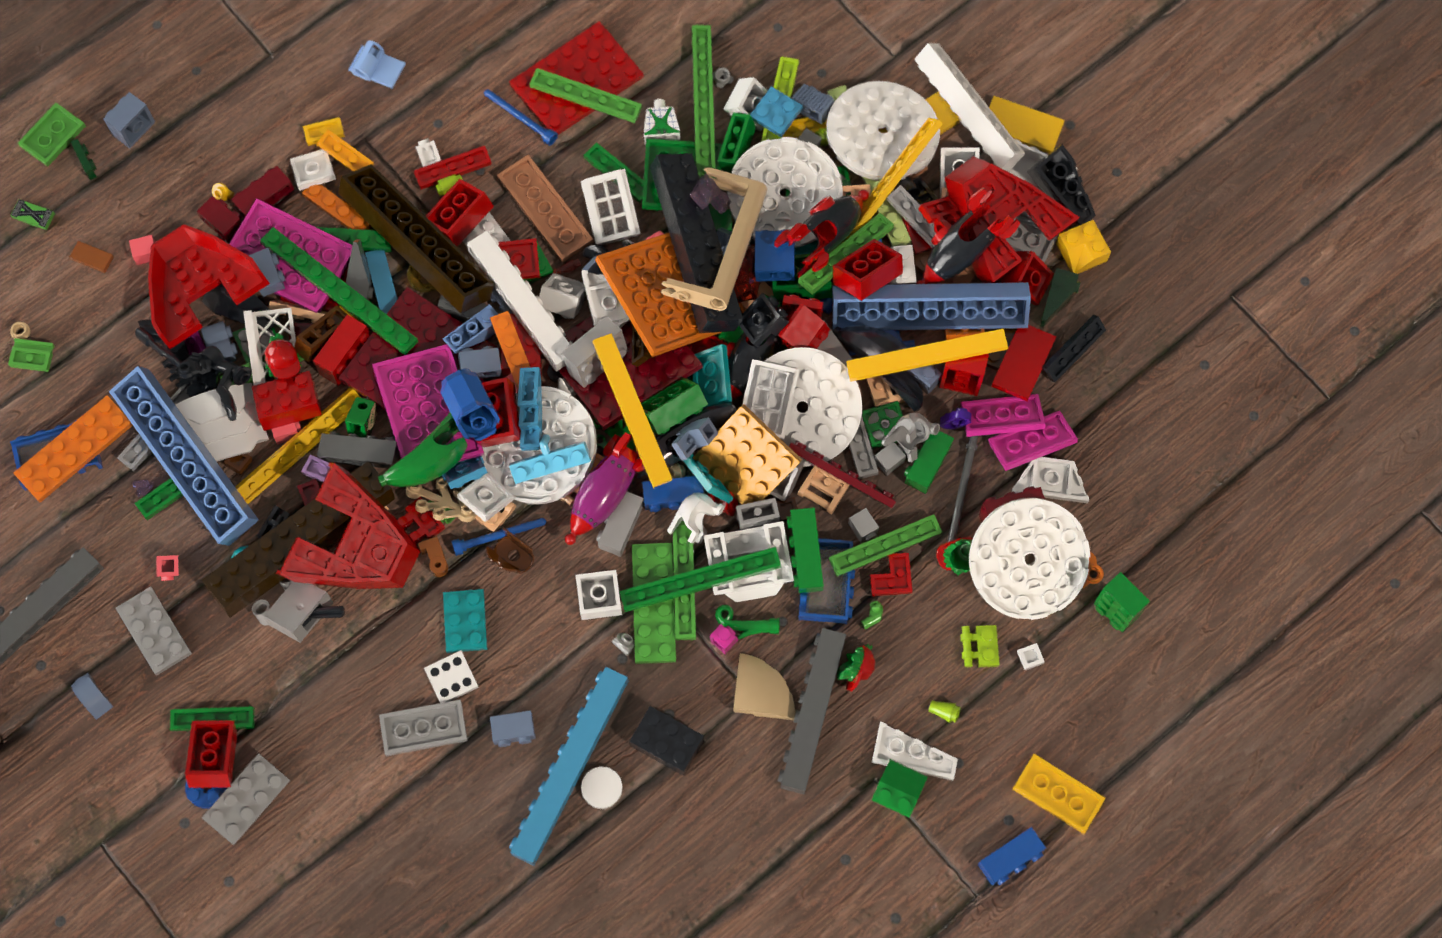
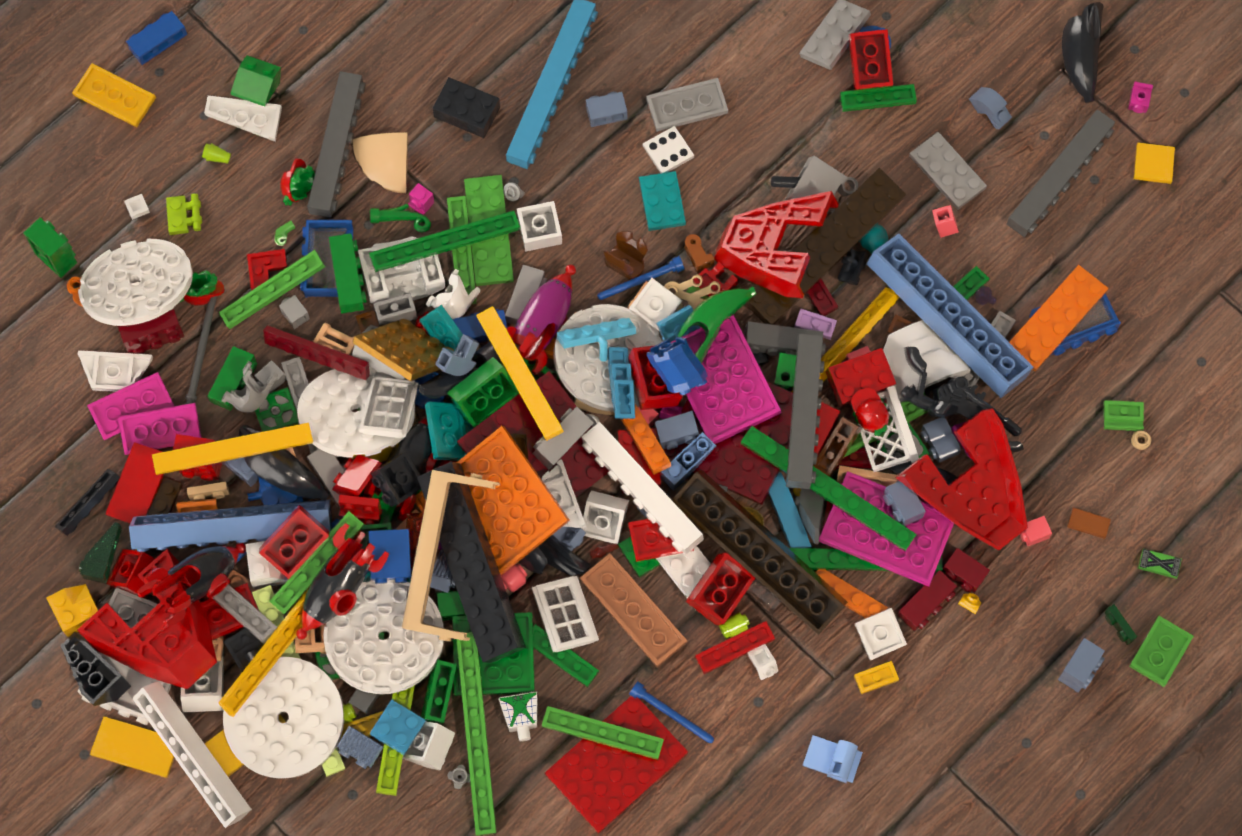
camera: 175 degrees right, 0 degrees up
(343, 151) = (849, 651): light orange plate -> none
(348, 356) = (804, 411): none -> dark grey brick
(601, 787) = (522, 69): white tile -> none
(708, 192) = (460, 614): plate -> none
(938, 211) = (224, 616): red plate -> none
(955, 419) = (206, 415): dark purple plate -> none

